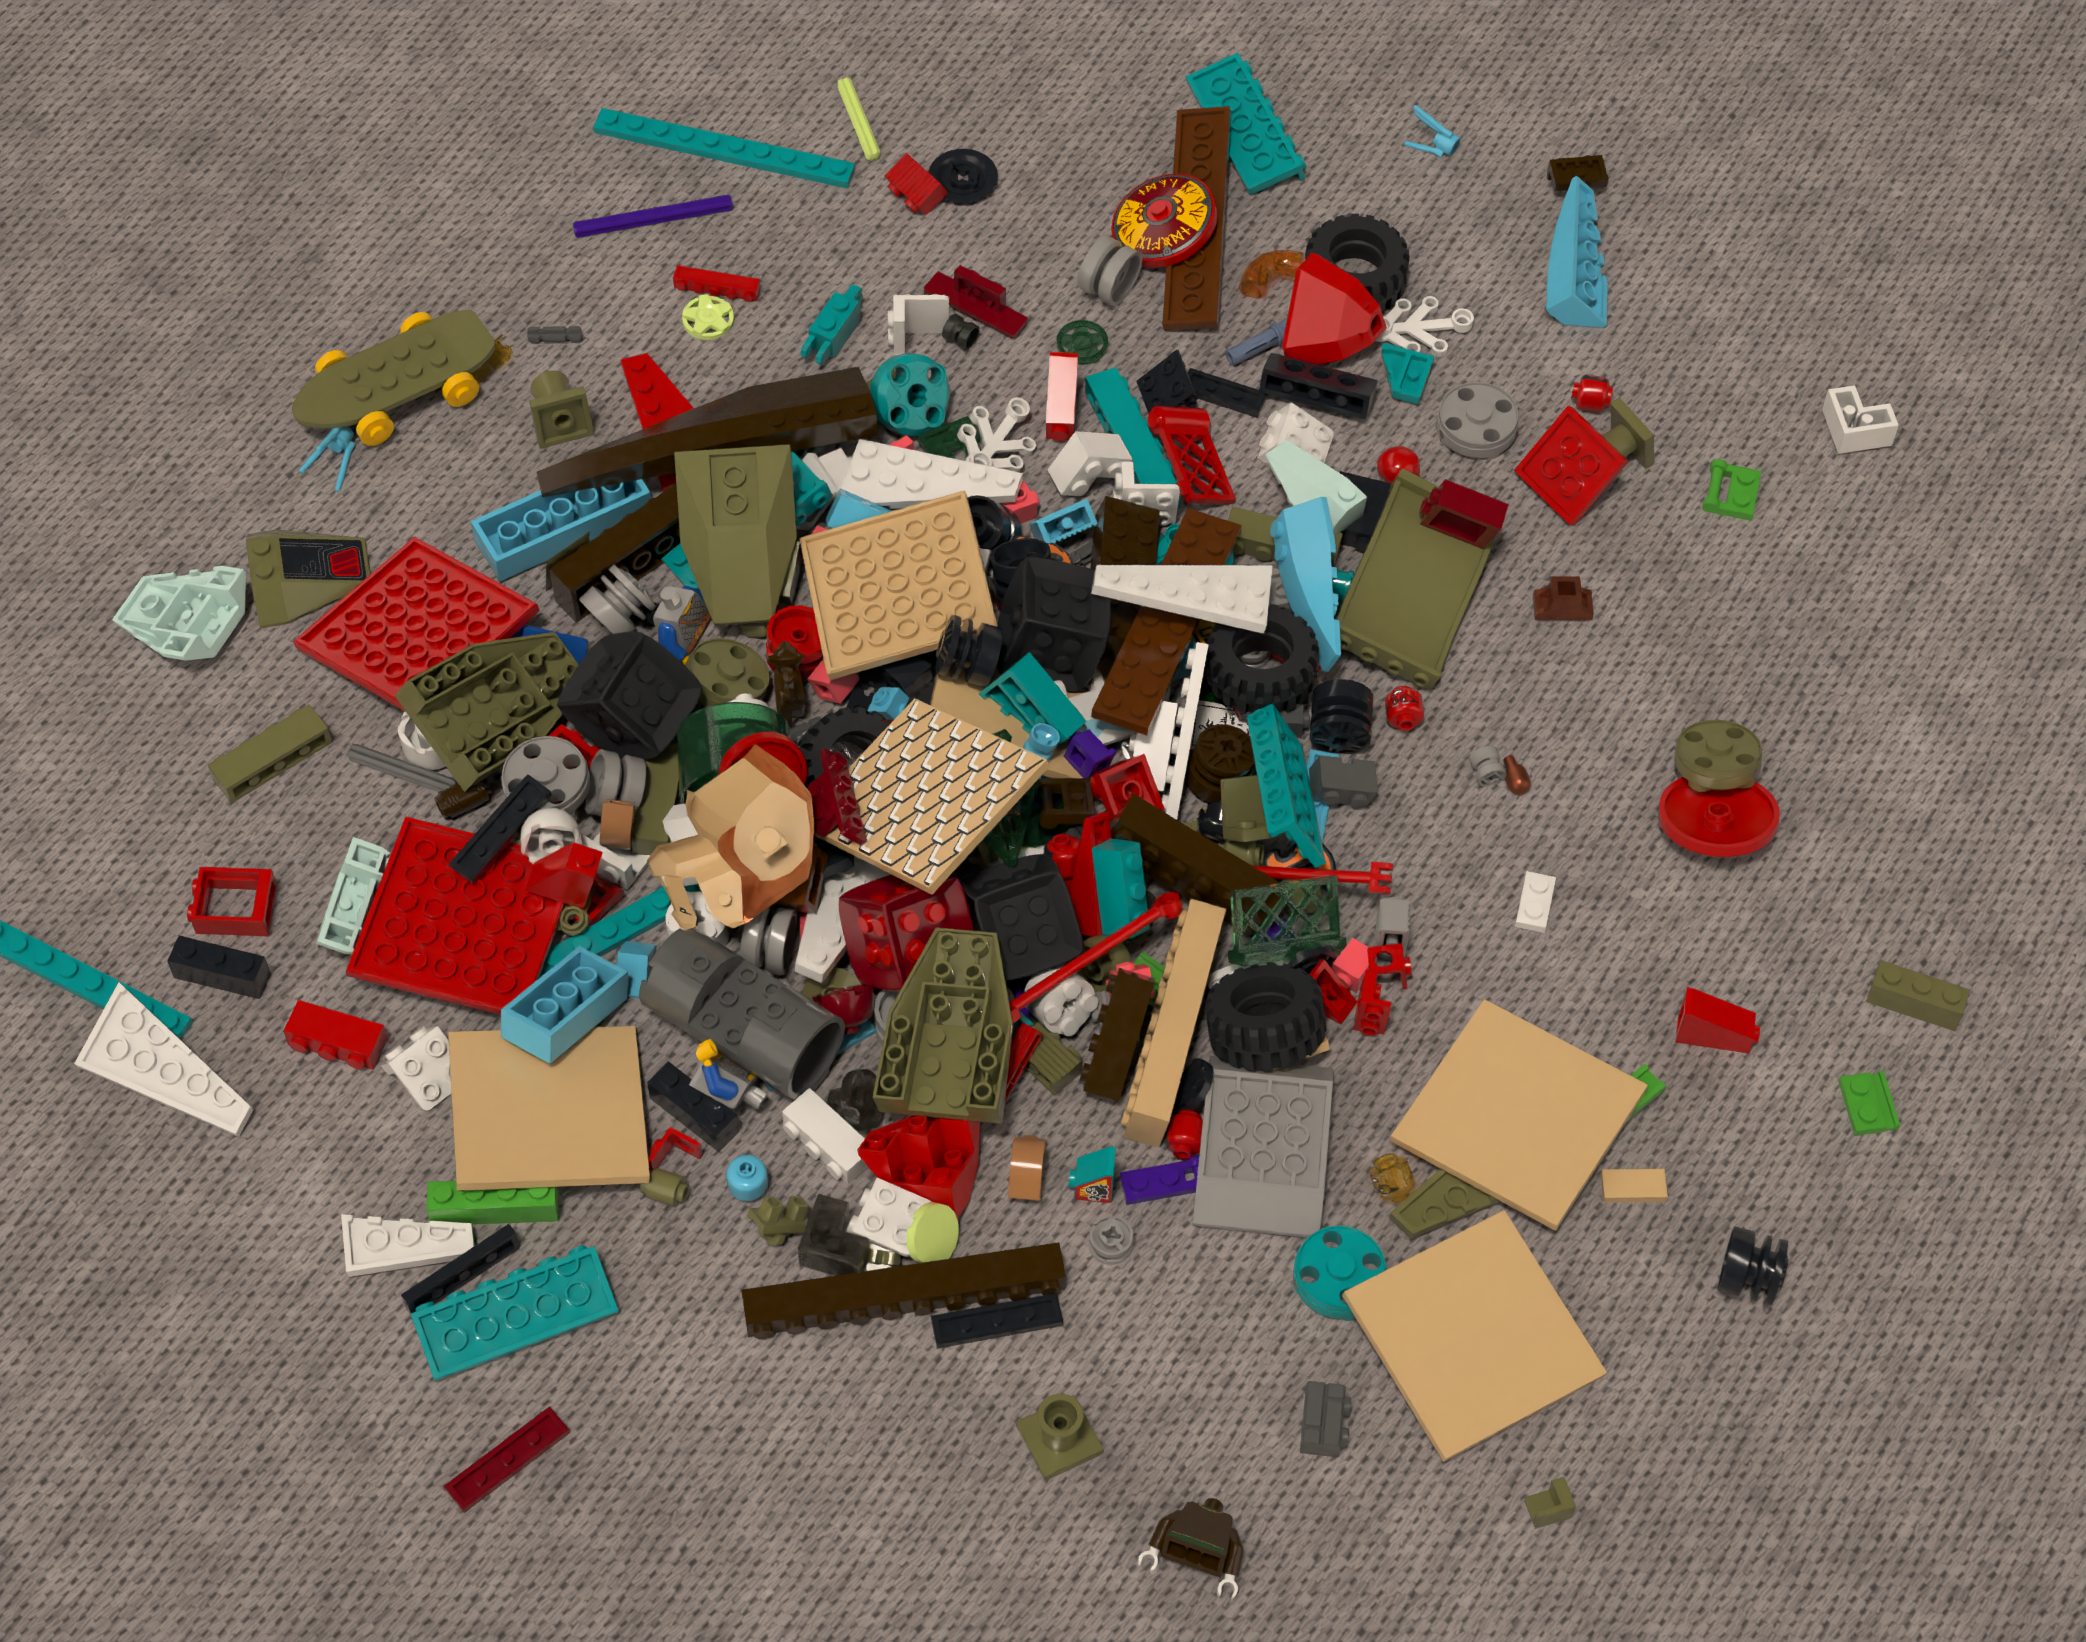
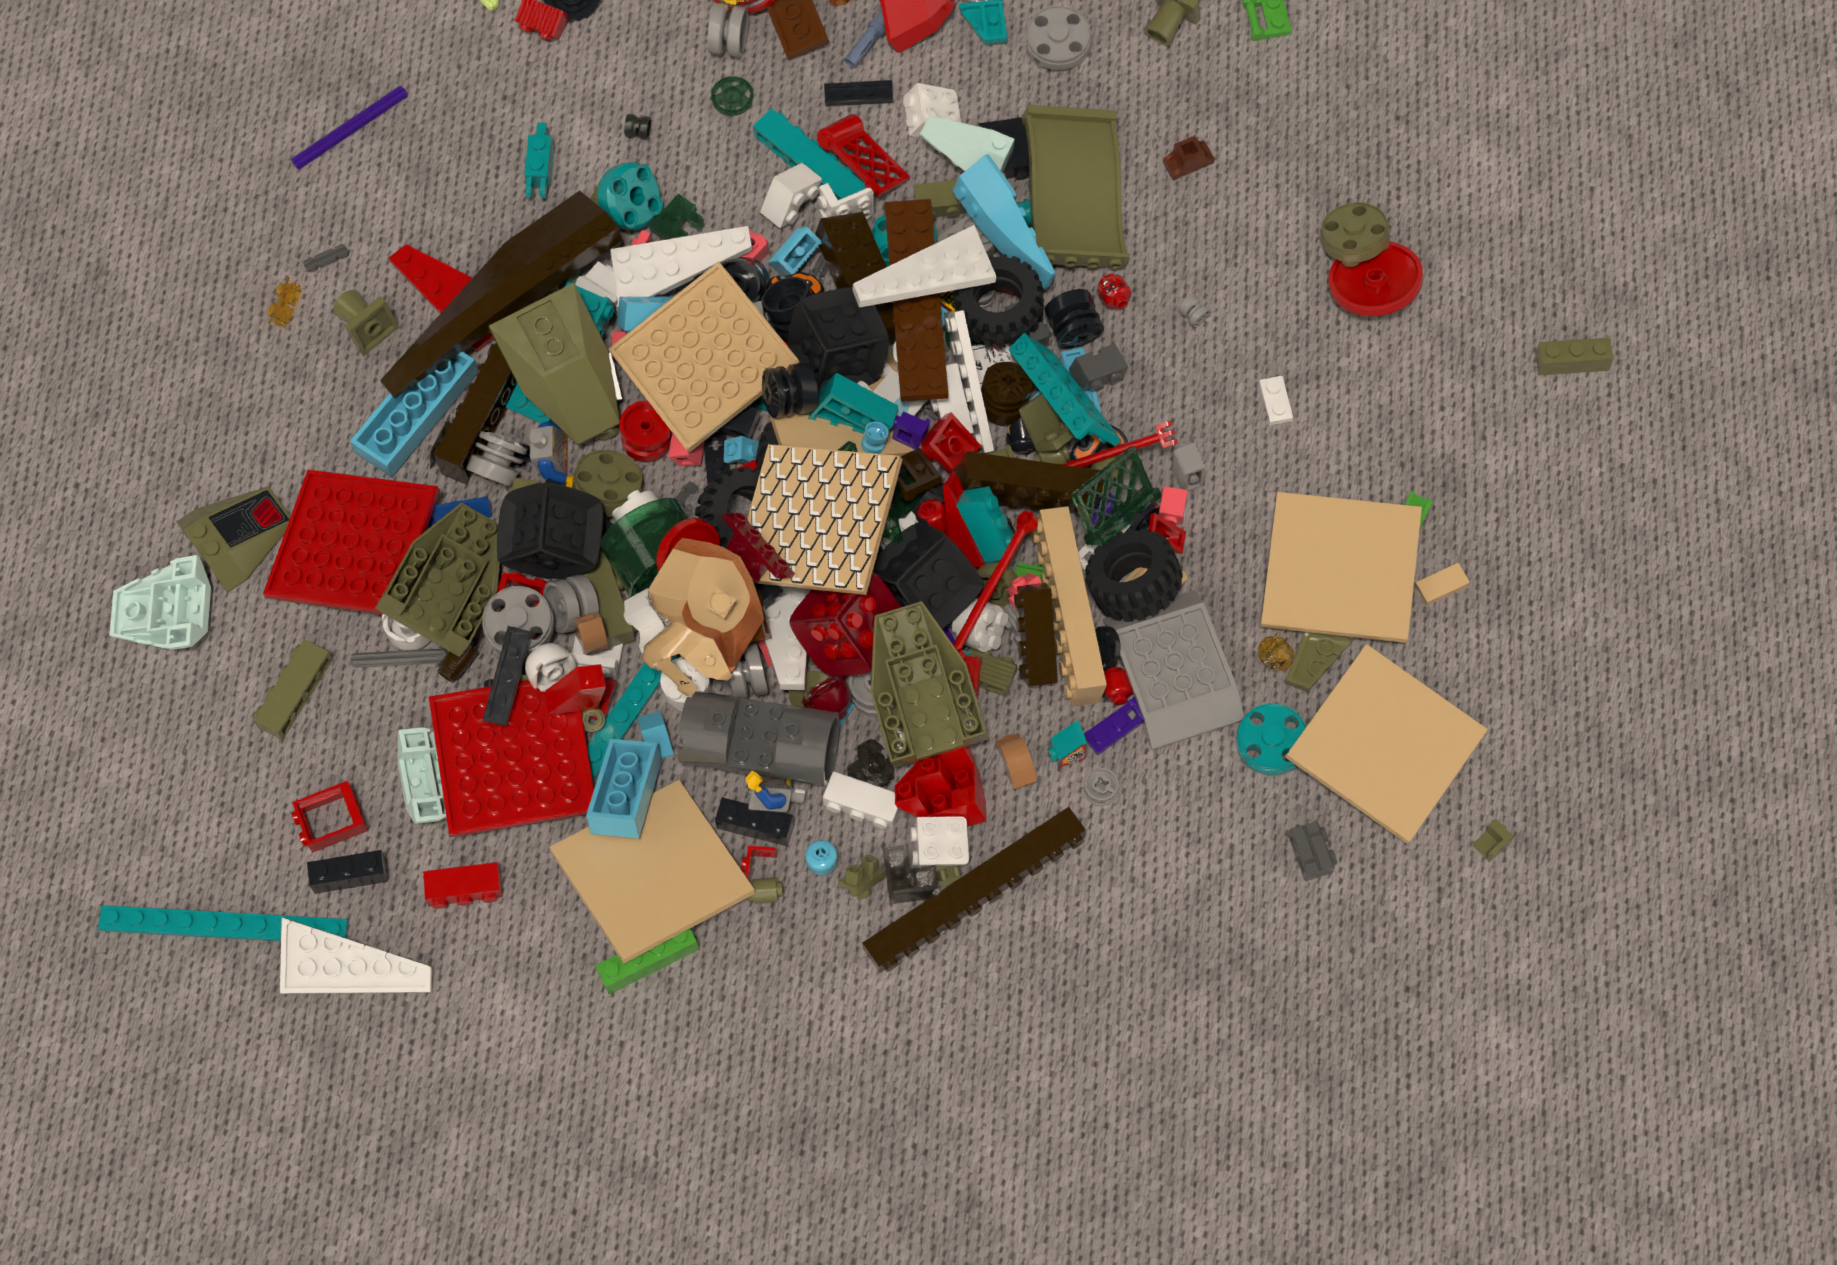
camera: 20 degrees left, 10 degrees up
(336, 440) = (204, 417): medium azure plant -> none
(390, 1245) = (589, 1022): white wing -> none
(394, 372) = (223, 343): olive piece -> none
(422, 1066) = (540, 879): white bracket -> none
(462, 1269) = (651, 1019): black tile -> none
(506, 1459) = (756, 1139): dark red tile -> none
(514, 1312) = (705, 1031): teal bracket -> none
(707, 317) = (436, 194): yellowish green wheel -> none
(716, 283) = (429, 163): red piece -> none
(724, 148) = (374, 47): teal plate -> none
(788, 681) = (657, 467): dark brown animal -> none
(916, 315) = (598, 128): white bracket -> none
(932, 1233) = (976, 840): yellowish green tile -> none
(978, 299) = (636, 94): dark red bracket -> none
(996, 1320) = (1049, 881): black tile -> none
(1015, 412) = (709, 205): white plant -> none
(1059, 1436) = (1131, 956): olive plant -> none
(1061, 395) = (742, 149): slope -> none
(1167, 384) = (815, 107): black hinge -> none
(1199, 1539) = (1271, 975): dark brown torso -> none
(1318, 386) = (928, 59): black brick -> none
(1371, 1012) = (1199, 535): red bracket -> none
(1395, 458) = (1015, 98): red hair -> none
(1398, 964) = (1207, 493): red bracket -> none
(1463, 513) = (1091, 123): dark red window -> none
(1517, 776) = (1219, 310): copper cylinder -> none
(1571, 465) = (1146, 48): red plate -> none
(1715, 1023) = (1445, 439): red slope -> none
(1753, 1266) = (1559, 608): black wheel -> none
(1869, 1103) = (1574, 451): bright green plate -> none

